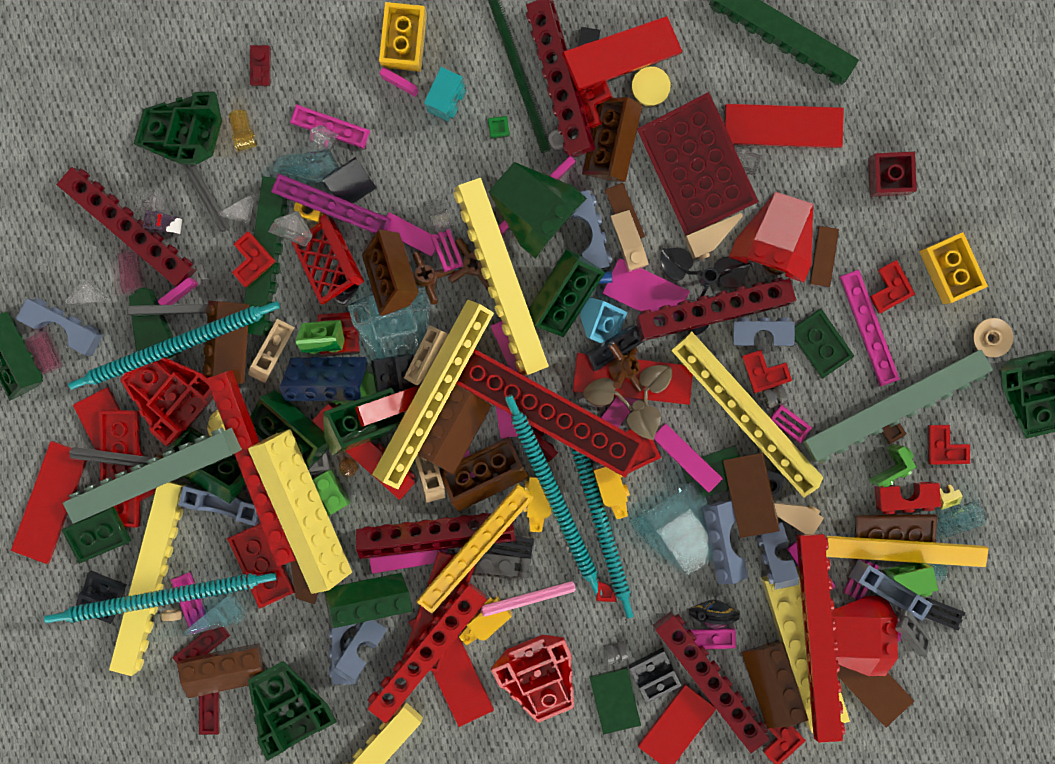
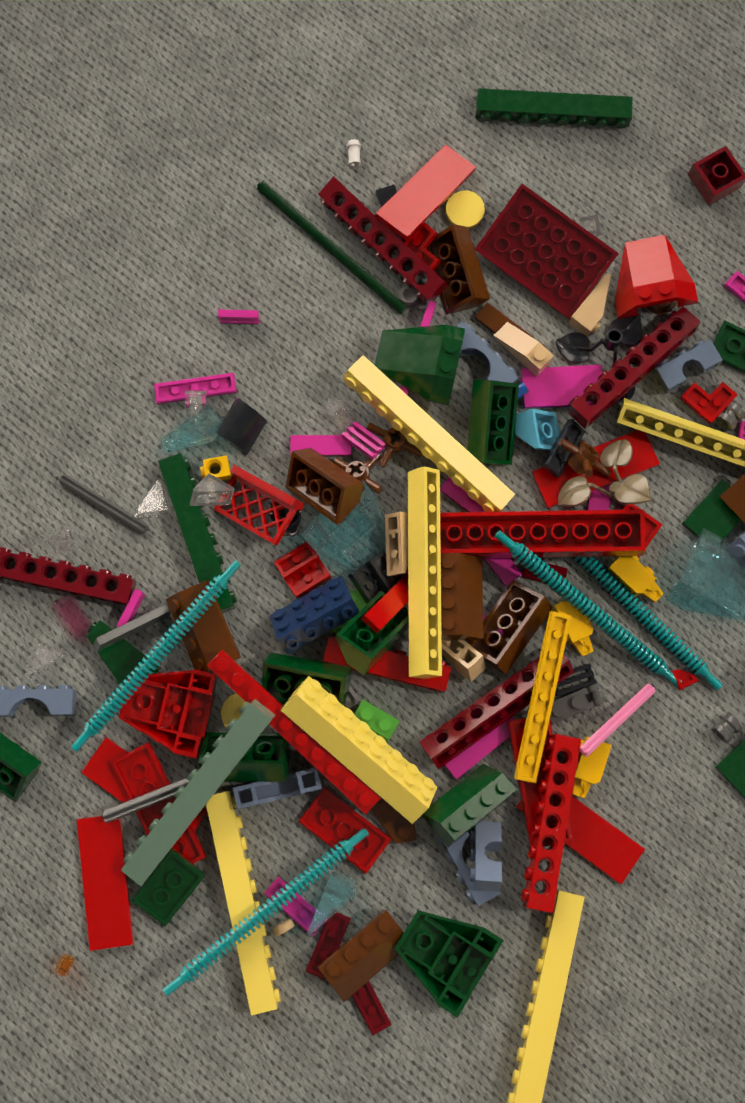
camera: 30 degrees left, 10 degrees down
(44, 352) = (27, 736): clear pink tile -> none
(100, 588) = (198, 938): black slope -> none
(162, 222) = (87, 551): clear purple leg -> none
(182, 129) = (59, 458): dark green wedge -> none
(243, 135) = (118, 435): clear yellow piece -> none
(256, 261) = (193, 537): red plate -> none
(260, 65) = (102, 367): dark red hinge -> none
(270, 351) = (248, 619): tan slope -> none
(320, 337) = (291, 577): bright green slope -> none
(329, 204) = (234, 453): magenta tile -> none
(348, 467) = (378, 690): clear orange tile -> none
(403, 36) = (222, 275): yellow brick -> none
(445, 94) = (289, 304): teal brick -> none
(498, 127) = (349, 311): green tile -> none
(538, 676) = (669, 789): red wedge -> none
(687, 458) = (687, 512): dark pink tile -> none
(785, 125) = (602, 182): red tile -> none
(824, 256) = (700, 273): reddish brown tile -> none

